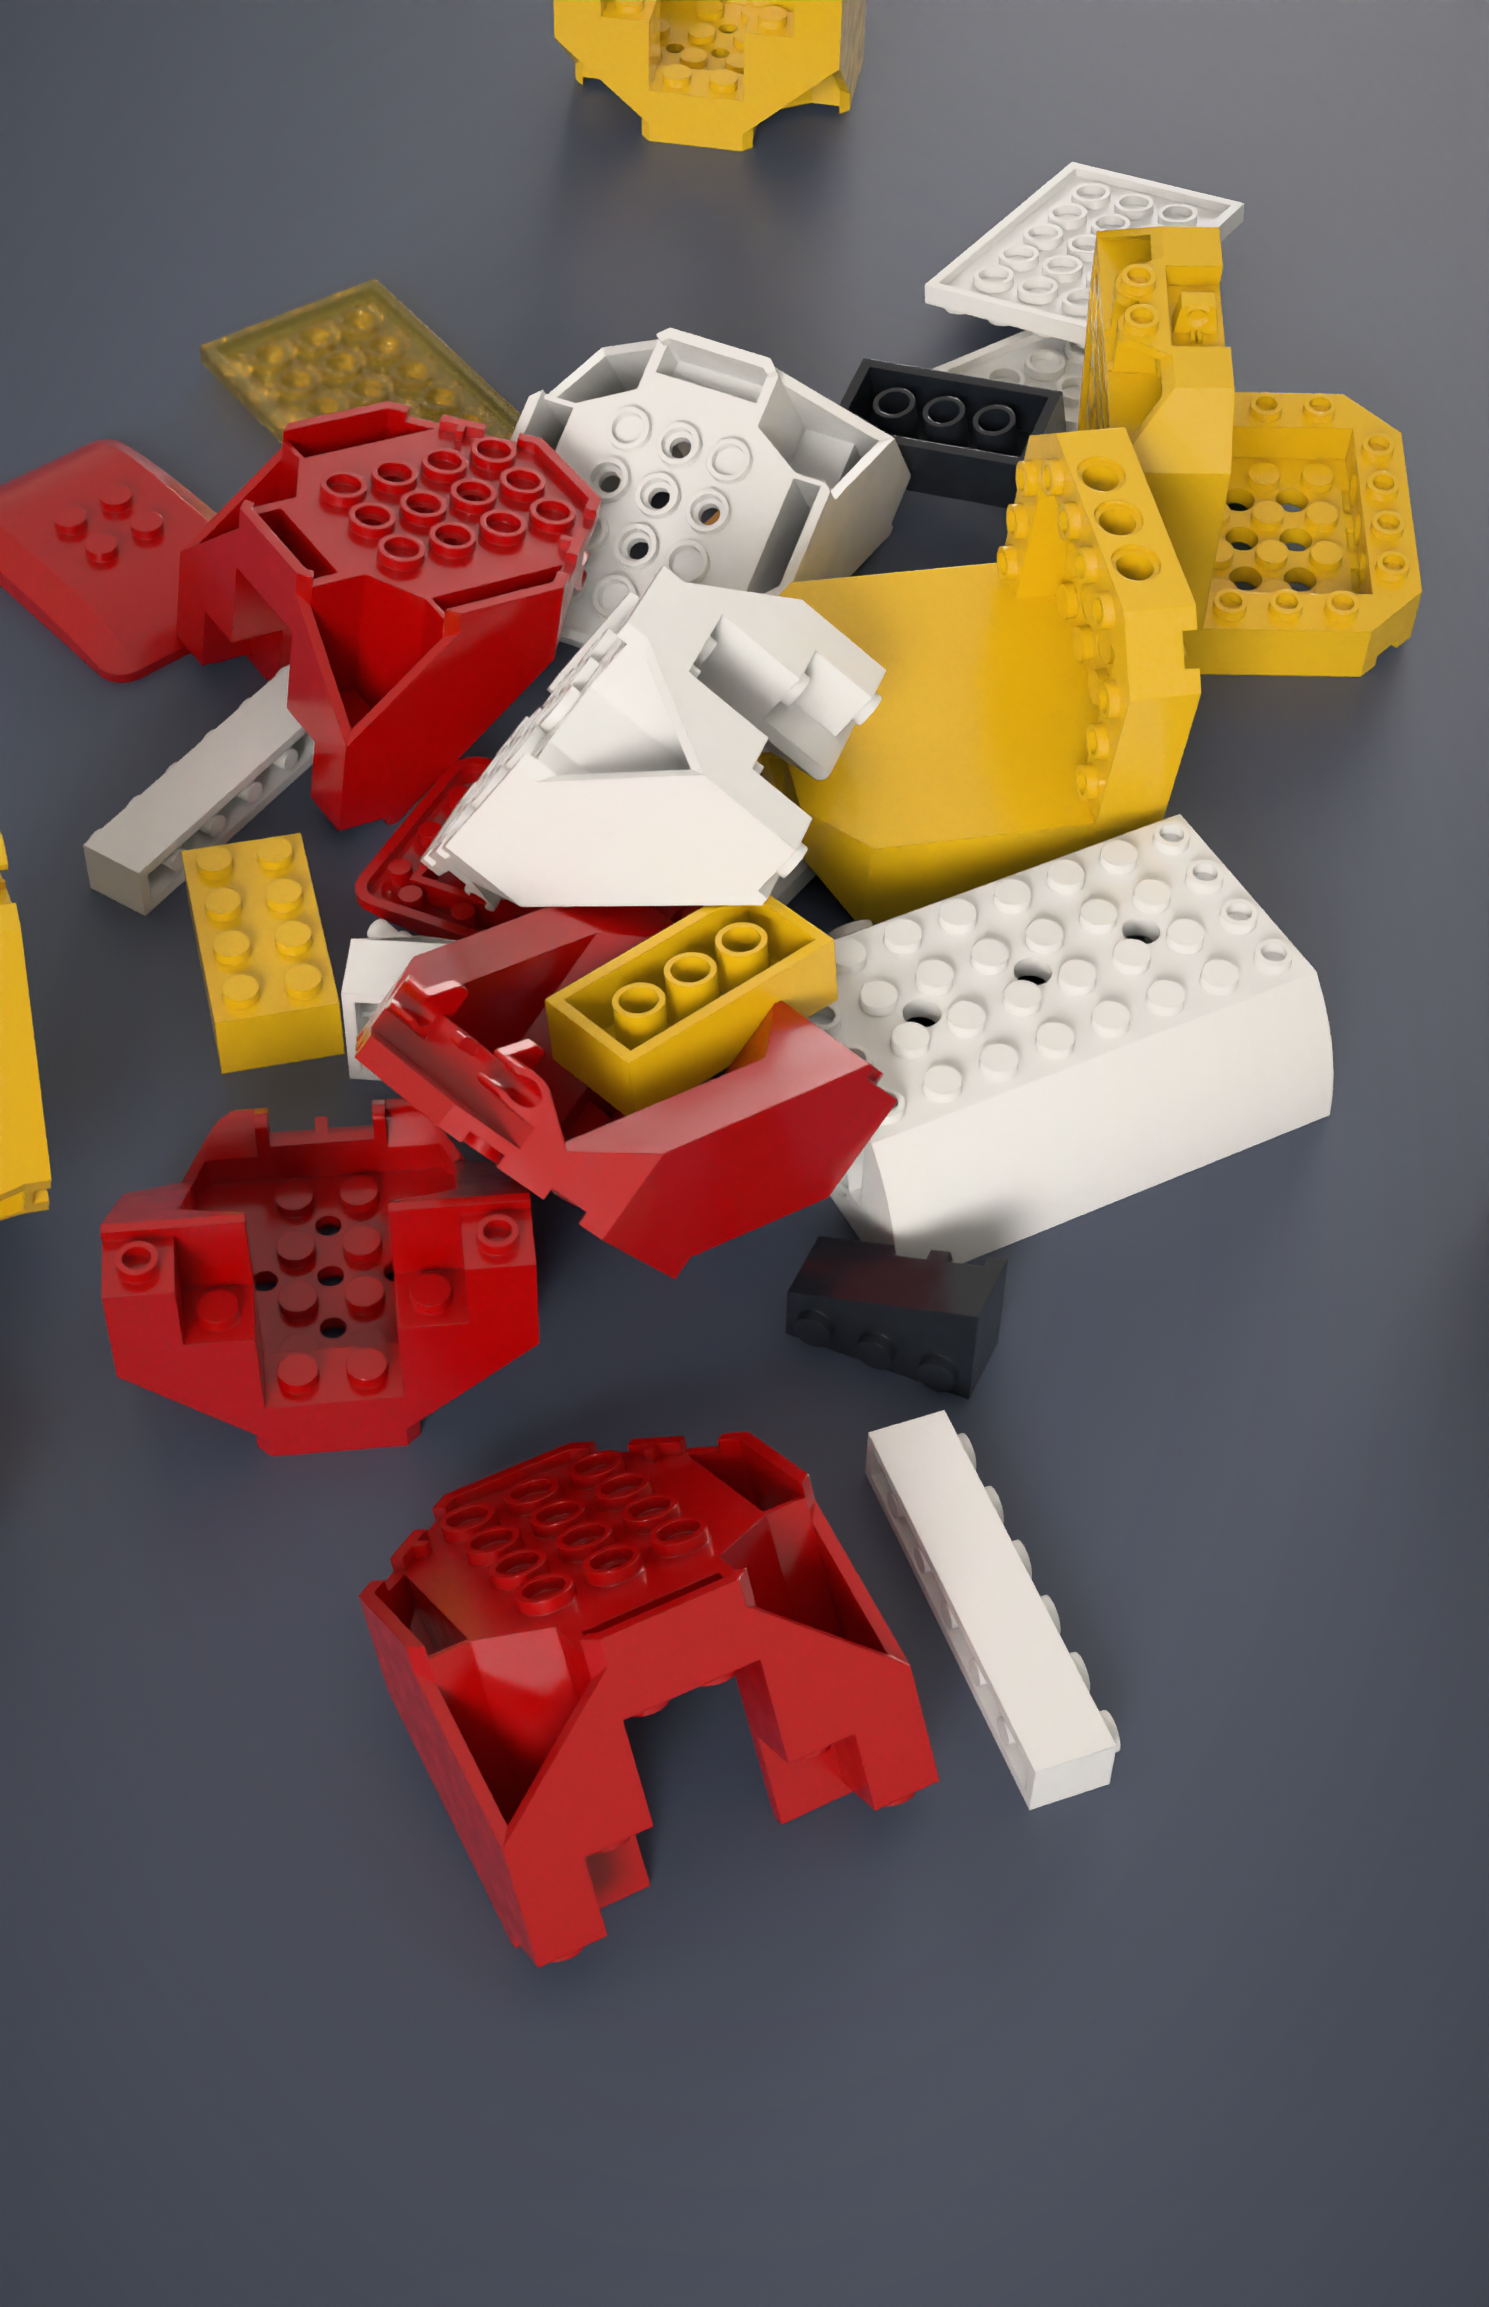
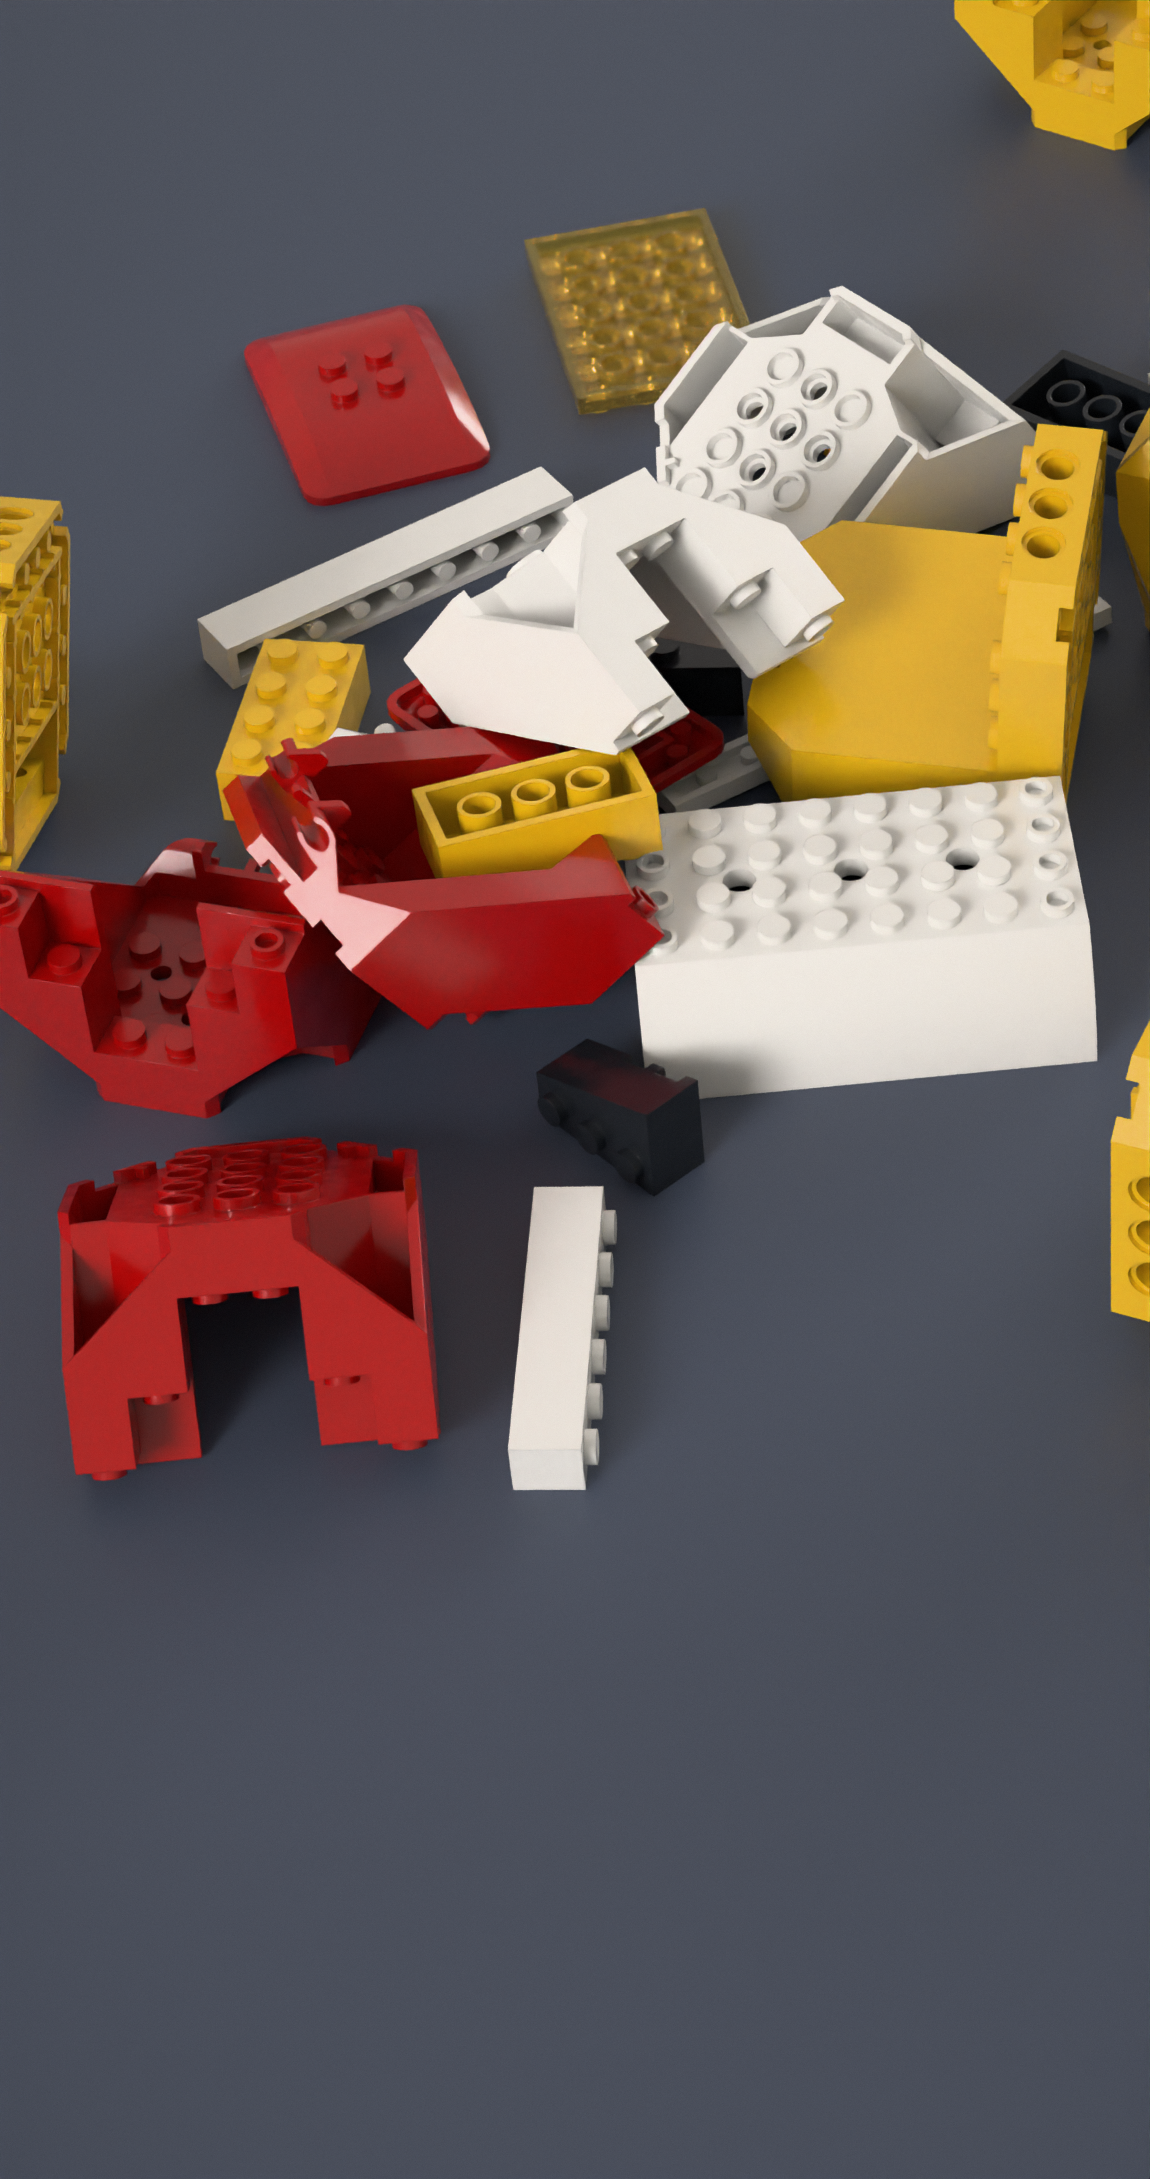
camera: 30 degrees right, 5 degrees down
(401, 581) = (519, 430): red piece -> none

